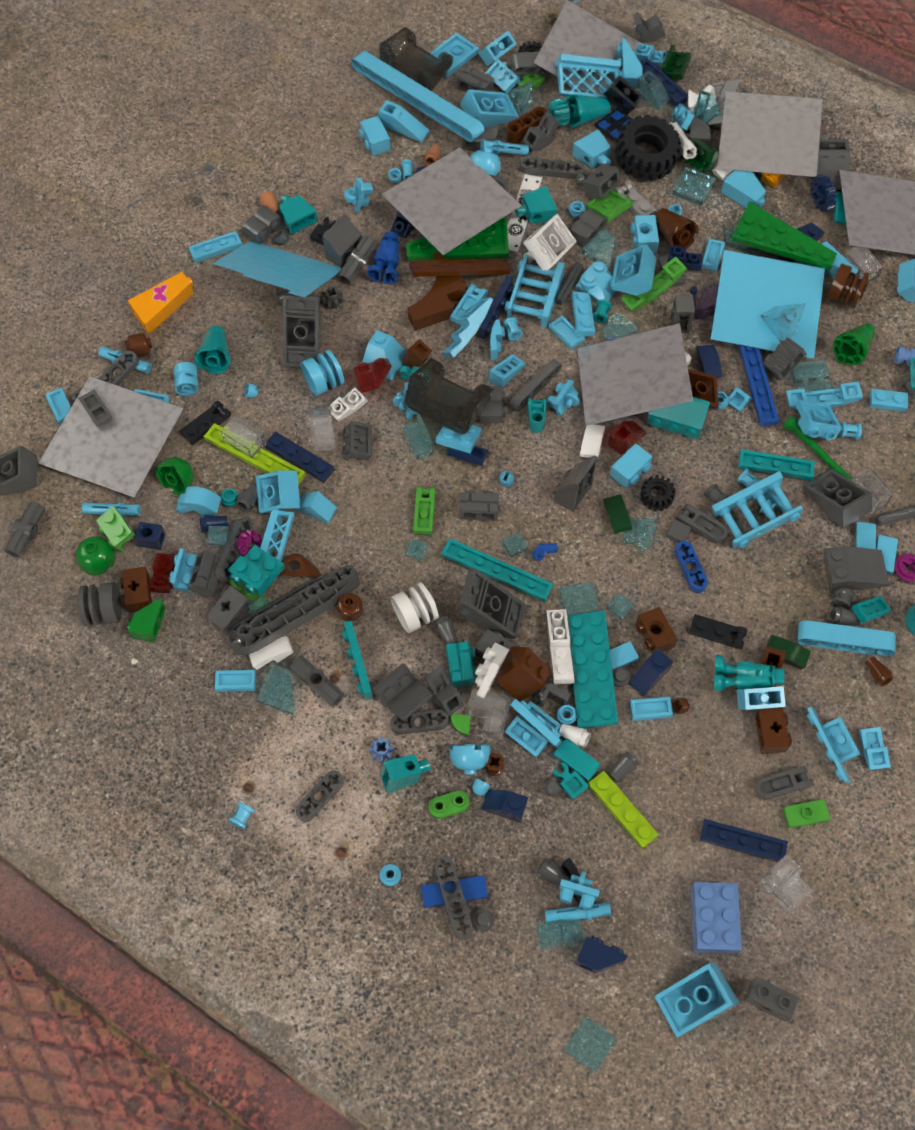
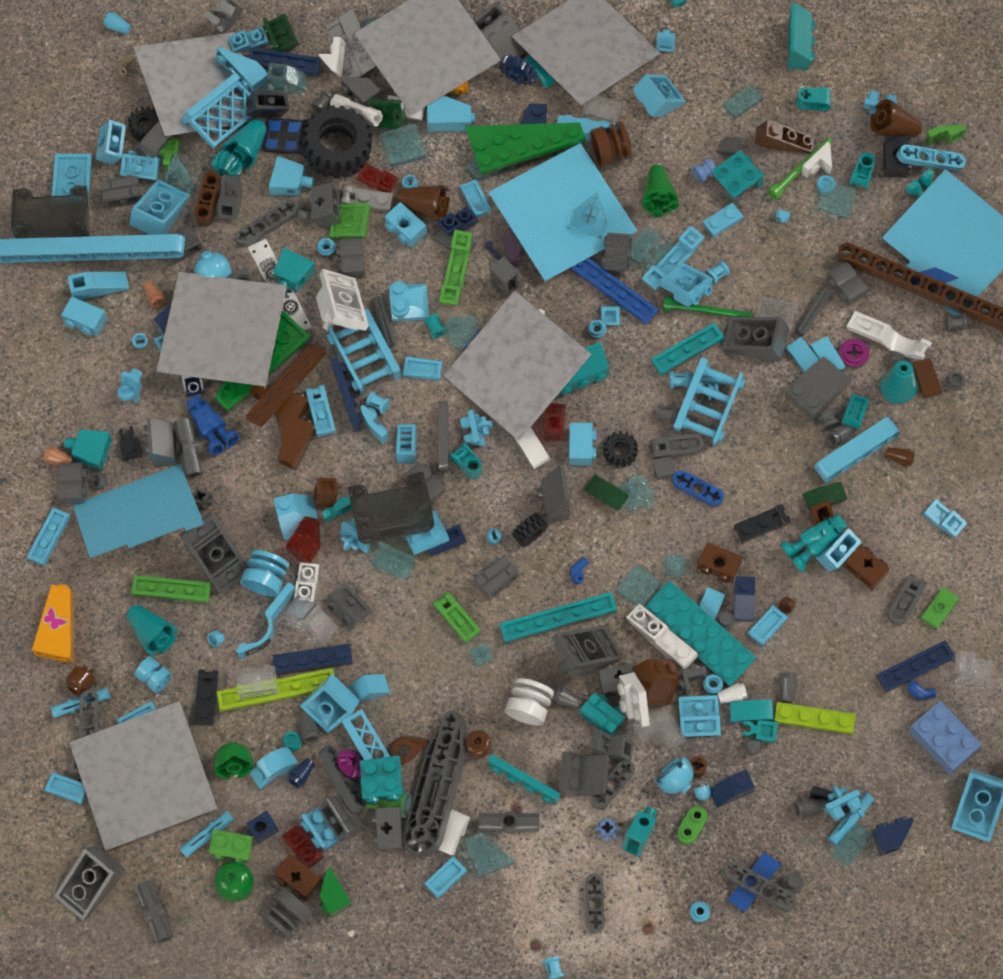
camera: 40 degrees left, 5 degrees up
(95, 407) = (107, 764): dark grey slope -> none
(218, 535) = (320, 779): clear light blue bracket -> none
(255, 337) = (171, 589): none -> bright green plate
(300, 405) = (271, 614): none -> medium azure piece
(407, 166) = (141, 323): medium azure pin -> none
(461, 723) = (644, 758): bright green tile -> none
(470, 324) = (342, 426): medium azure slope -> none
(499, 147) = (207, 242): medium azure pin -> none
(515, 544) = (551, 585): clear light blue tile -> none
(534, 492) = (529, 529): none -> black tyre
(537, 722) = (700, 708): medium azure plate -> none
(583, 314) = (421, 341): medium azure plate -> none
(590, 1044) = (938, 899): clear light blue piece -> none
(600, 247) = (379, 267): clear light blue wing -> none
(634, 271) = (430, 269): medium azure slope -> none
(655, 194) = (377, 179): none -> clear red slope
(682, 116) = (336, 84): medium azure slope -> none
(704, 387) = (580, 330): reddish brown slope -> none
(706, 107) = (349, 62): clear light blue slope -> none
(709, 360) = (560, 300): dark blue slope -> none
(727, 863) = (920, 693): none -> blue arm
(837, 740) = (917, 535): medium azure bracket -> none

